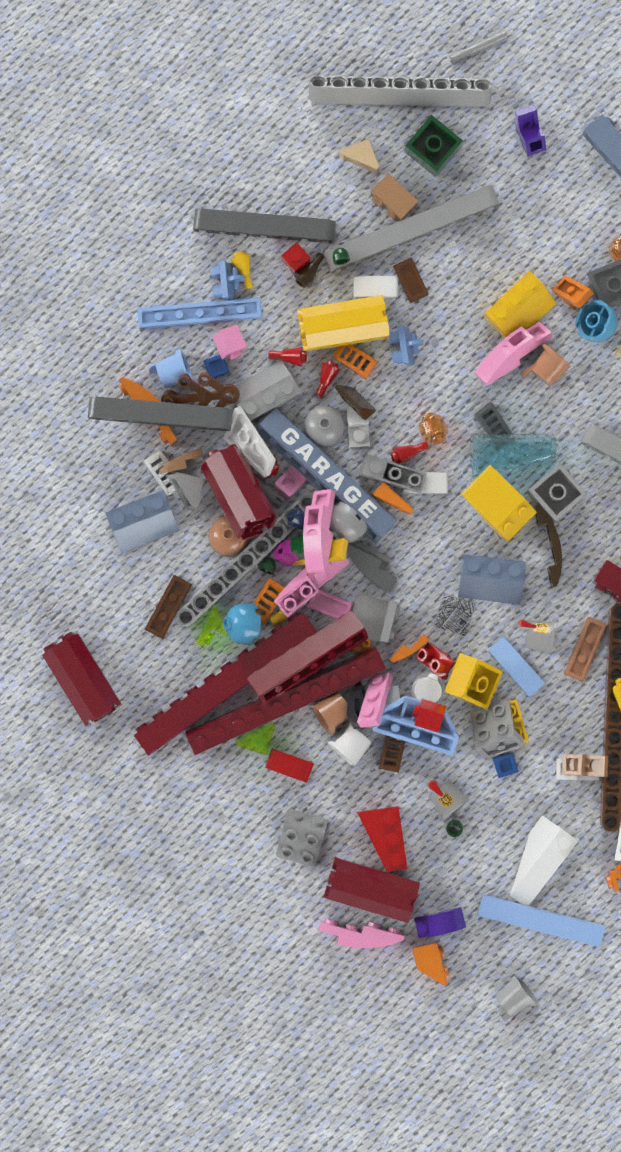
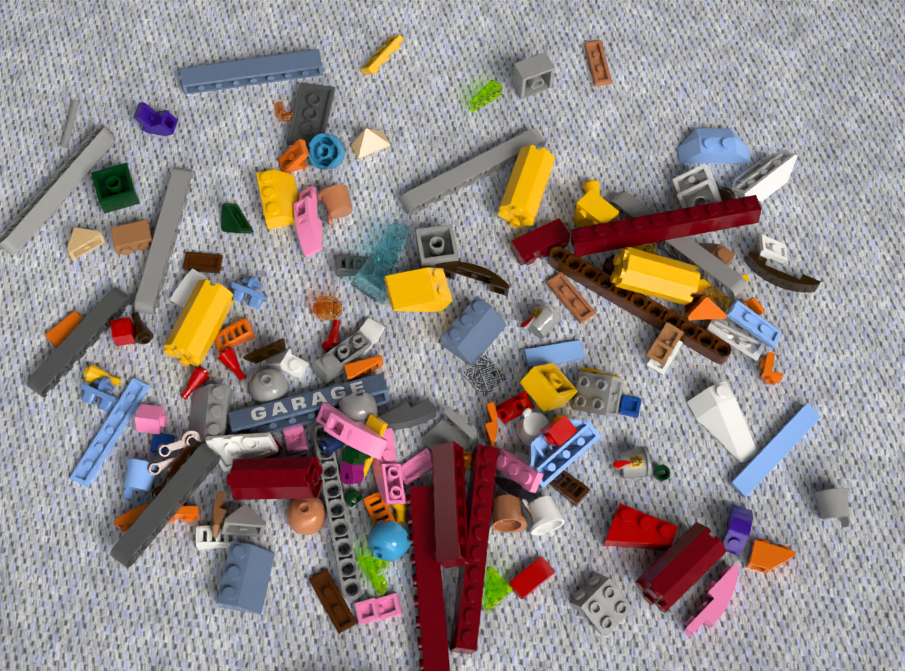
camera: 60 degrees left, 20 degrees down
(184, 649) = (378, 609): none -> bright pink slope
(267, 203) = (64, 328): none -> orange tile
(340, 256) = (146, 294): dark green hinge -> none
(471, 280) = (234, 220): none -> dark green slope

